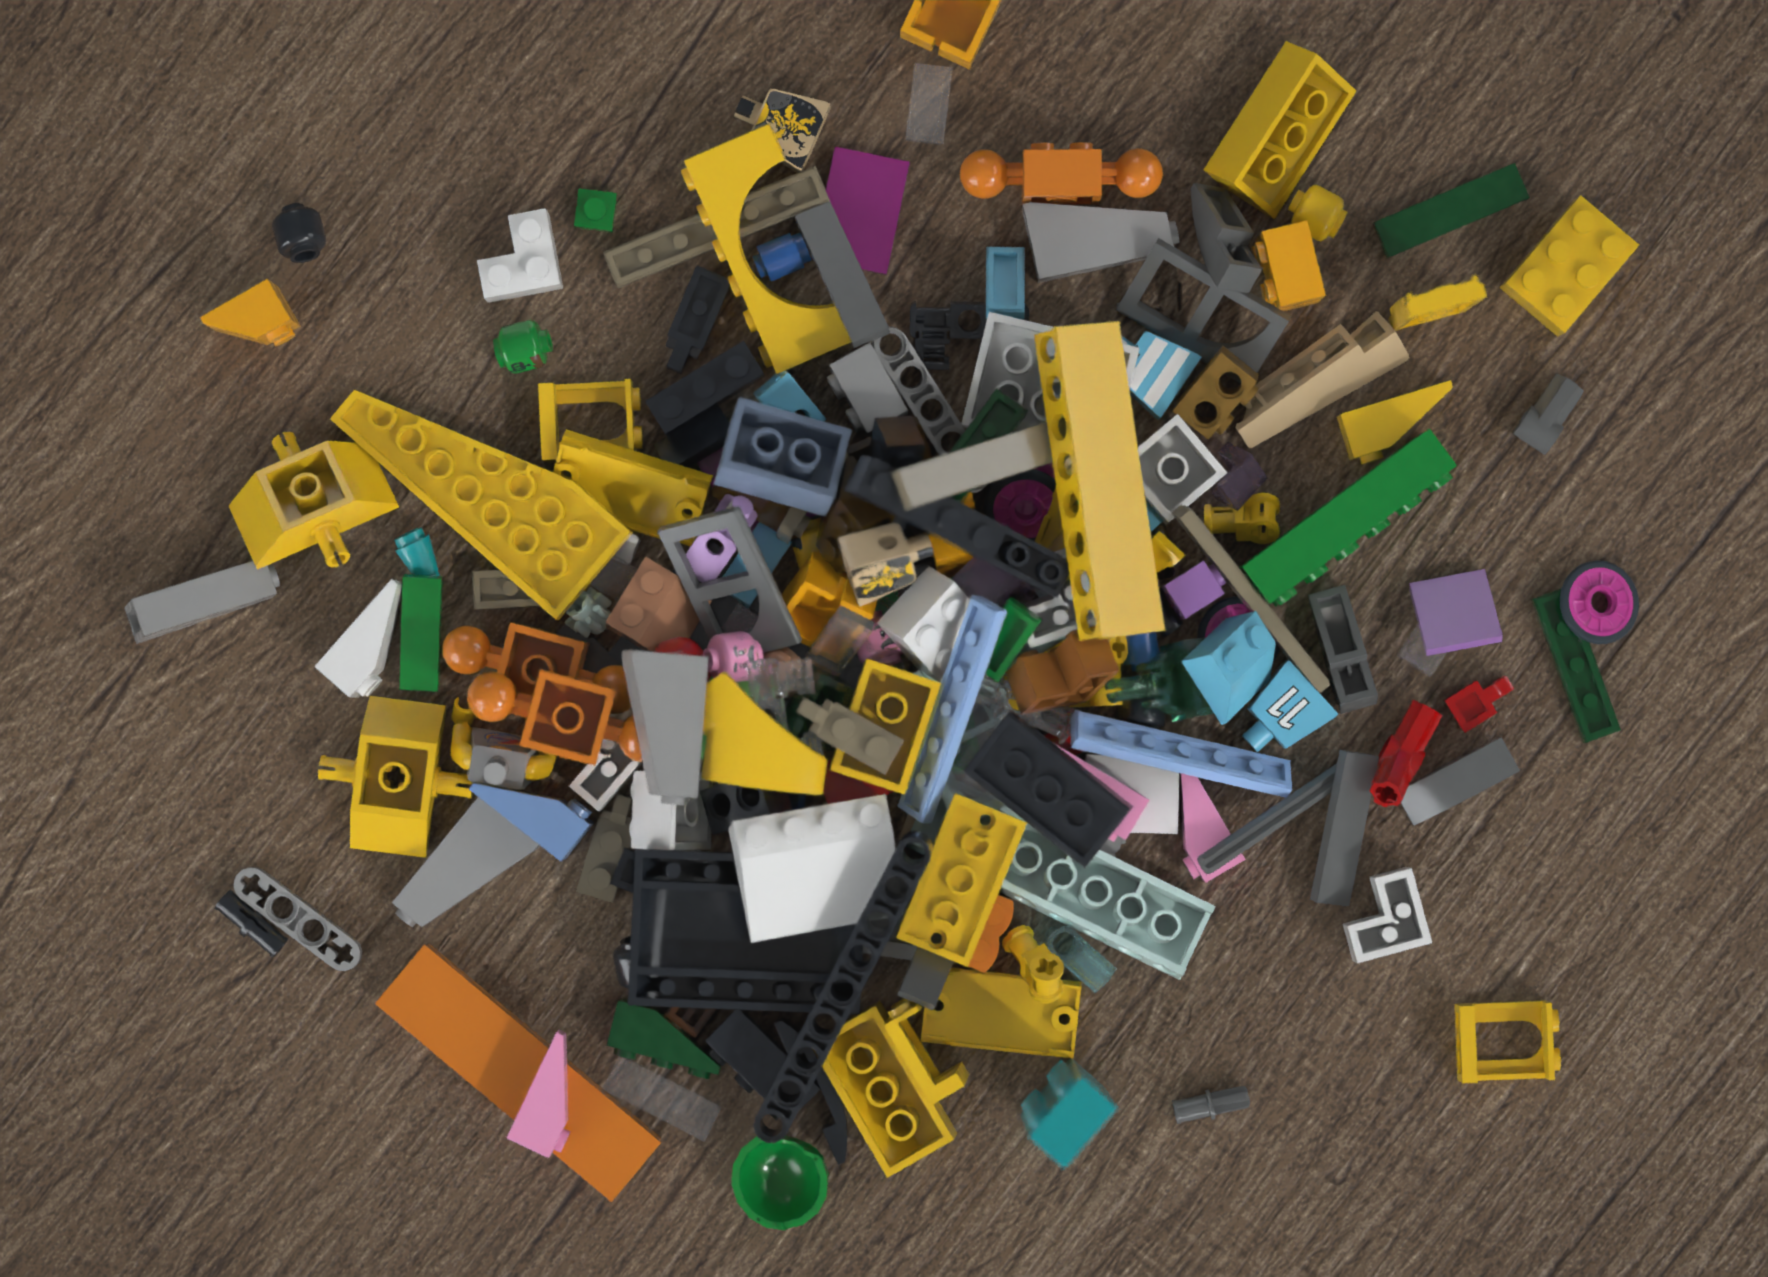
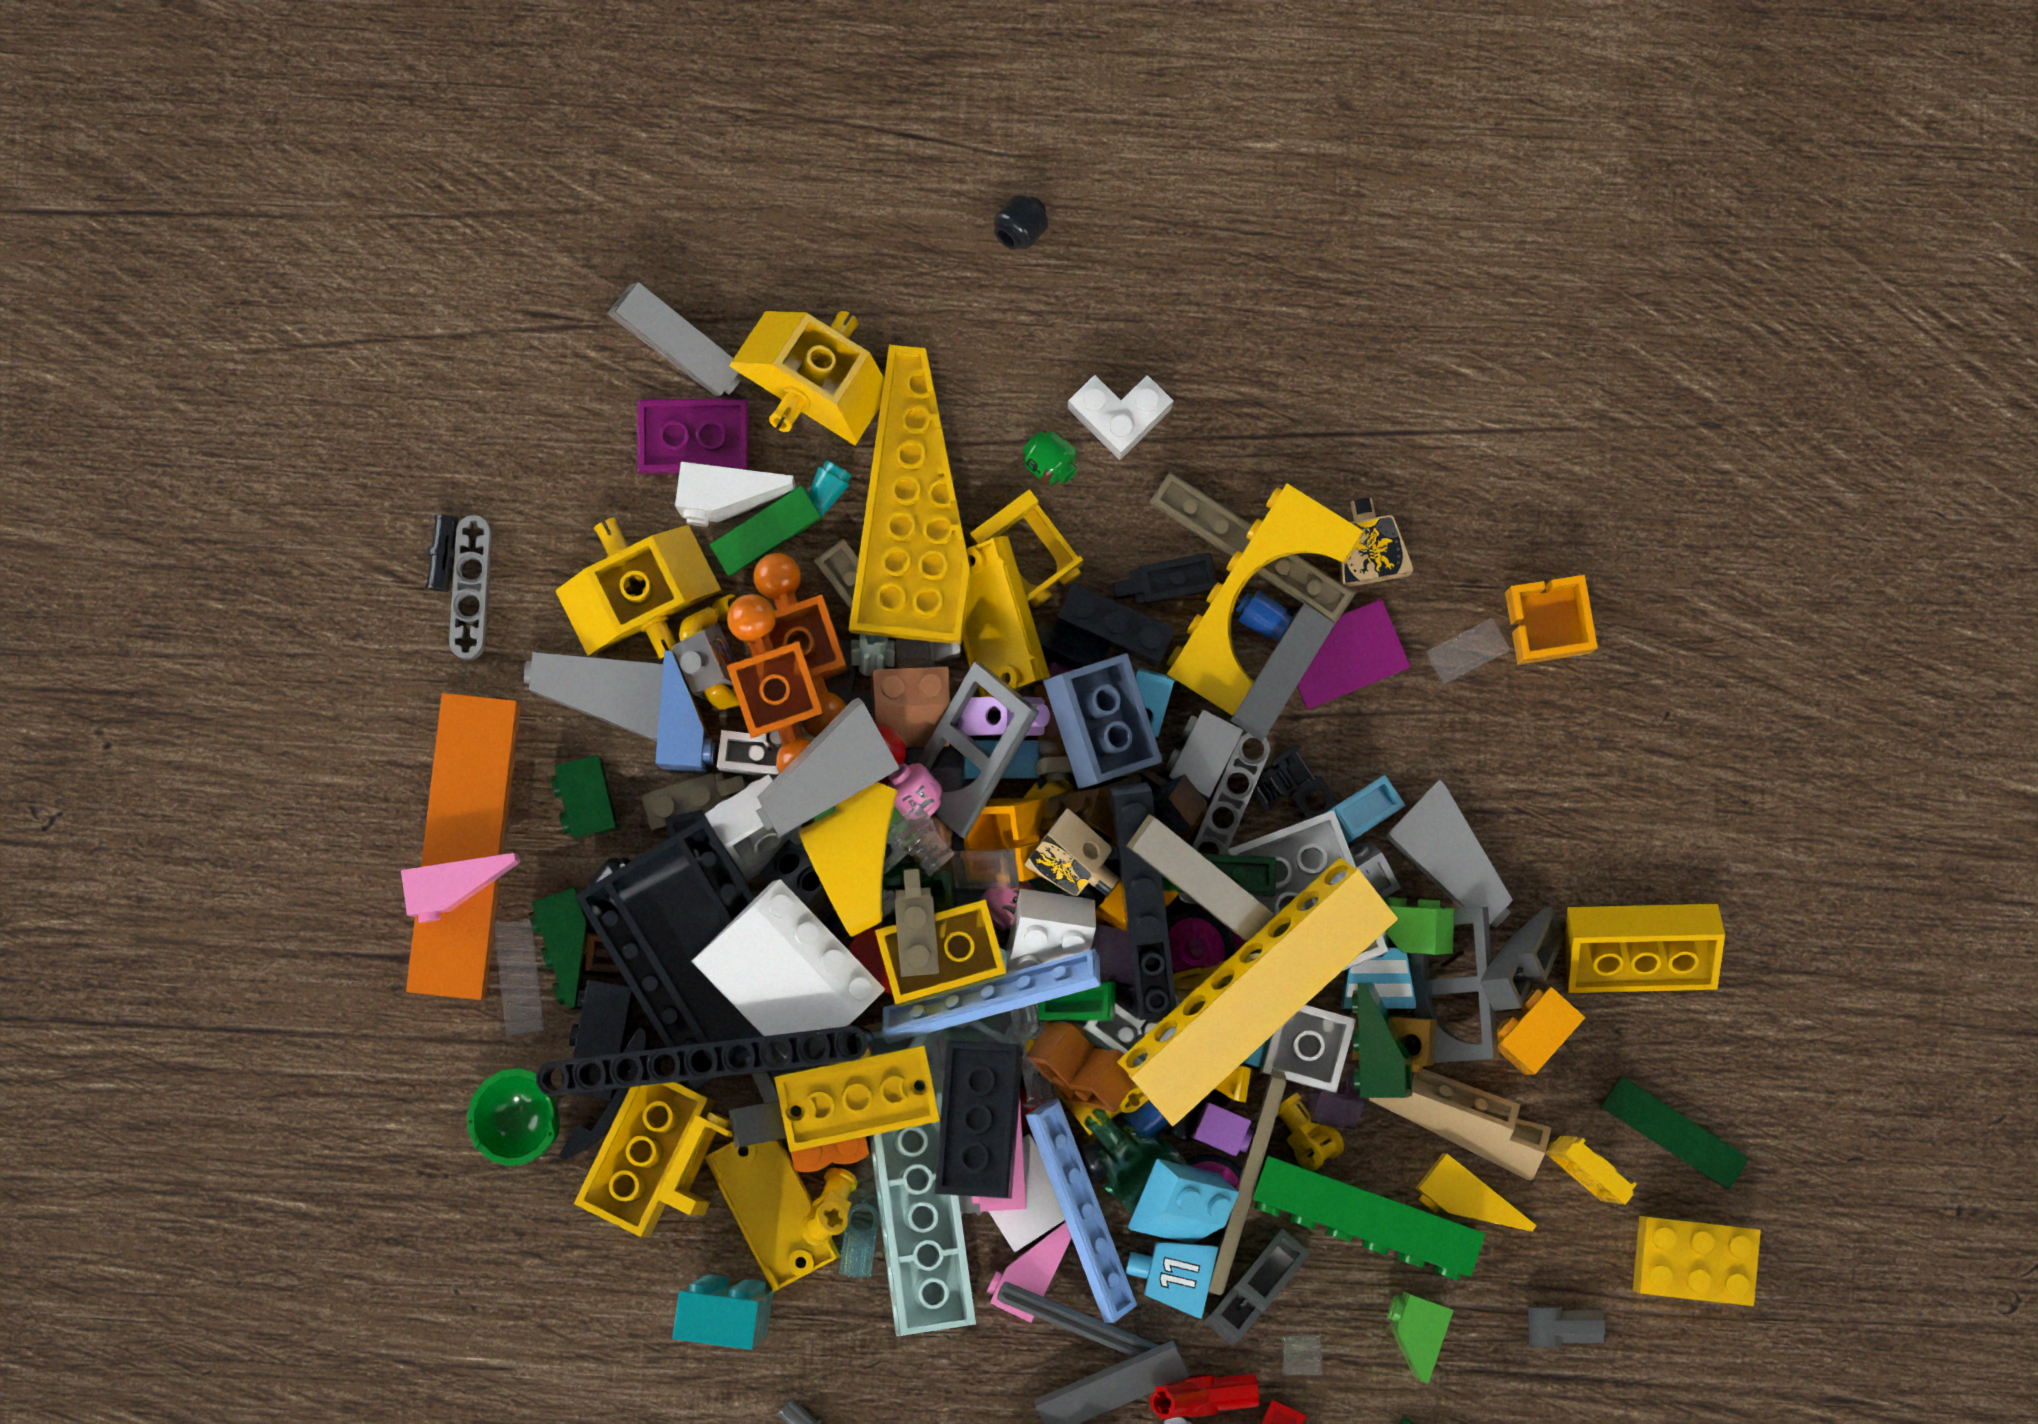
camera: 55 degrees right, 5 degrees down
(255, 315) = (932, 230): light orange slope -> none
(293, 640) = (691, 432): none -> magenta tile
(547, 940) = (585, 798): none -> dark green brick
(595, 210) = (1199, 443): green plate -> none
(1060, 311) = (1374, 868): none -> light grey bracket
(1061, 175) = (1484, 794): orange brick -> none
(1137, 305) = (1421, 927): none -> bright green slope
(1222, 411) = (1383, 1057): none -> dark green slope
(1321, 210) = (1601, 1026): yellow head -> none
(1455, 612) = (1350, 1359): medium lavender tile -> none
(1471, 538) = (1419, 1331): none -> bright green slope

